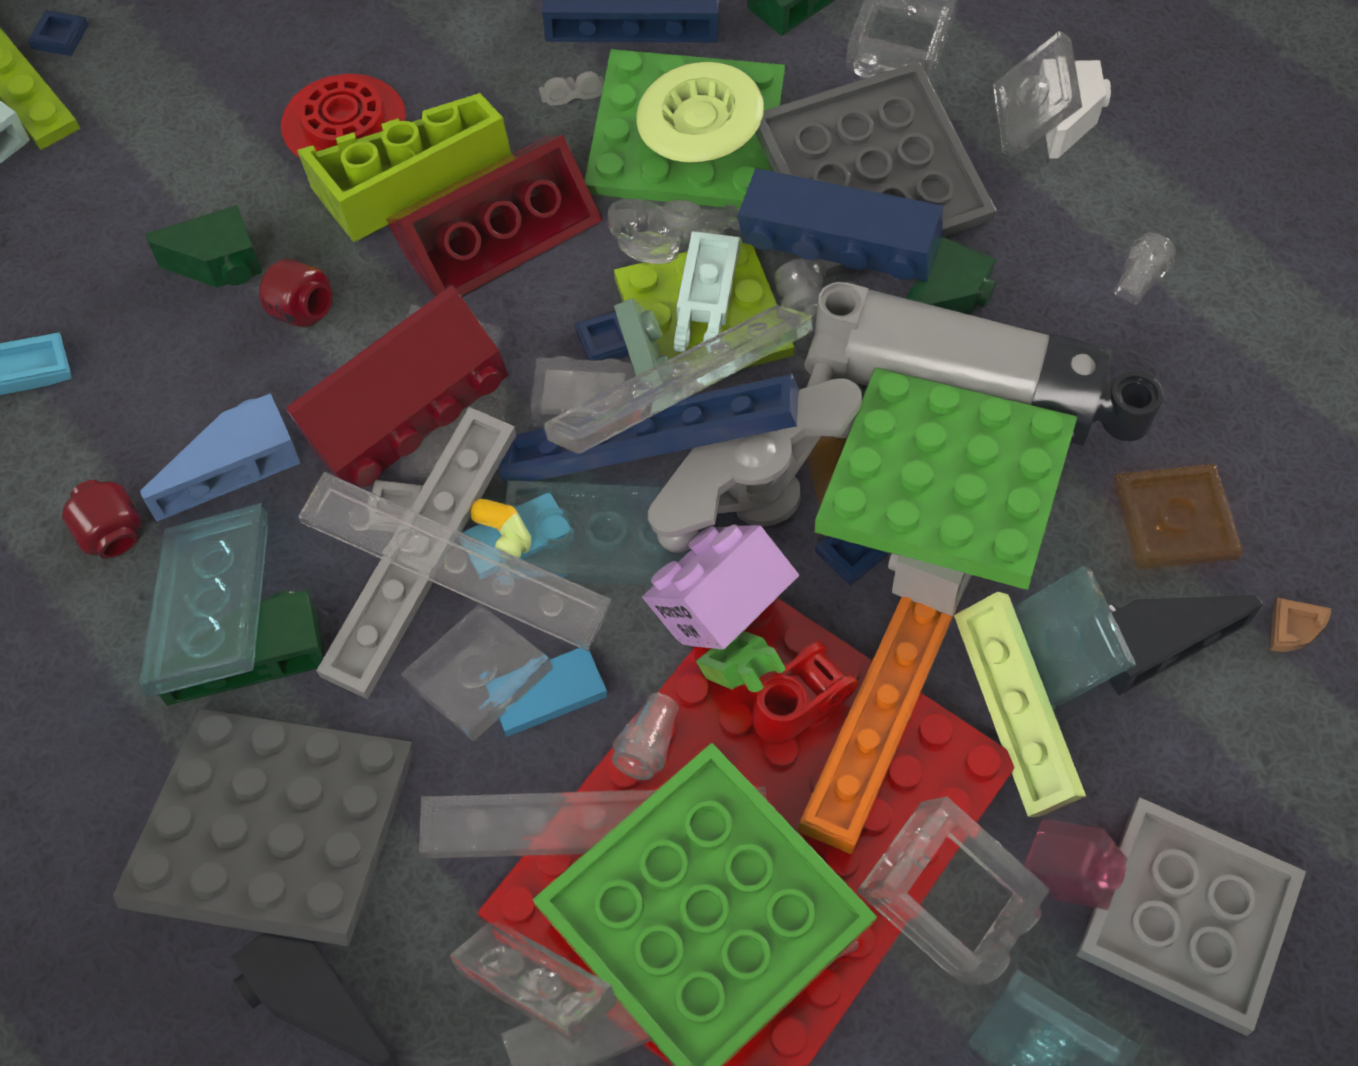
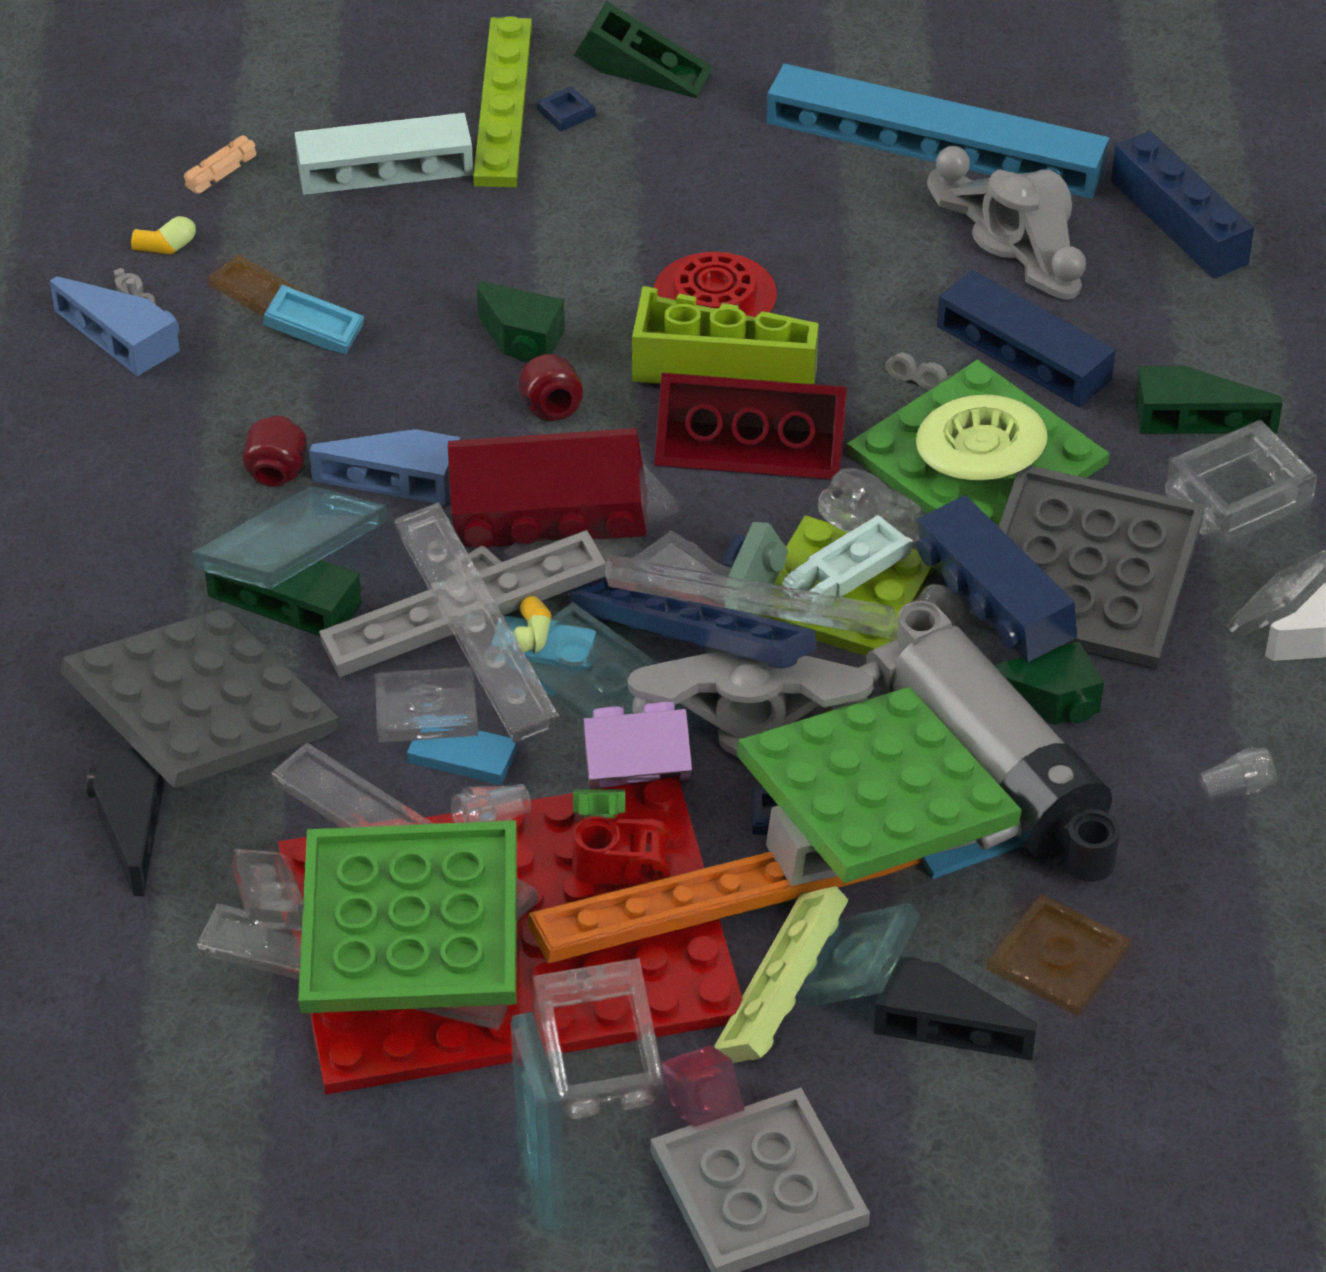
camera: 40 degrees right, 15 degrees down
(1296, 624) = (1067, 1082): medium nougat tile -> none

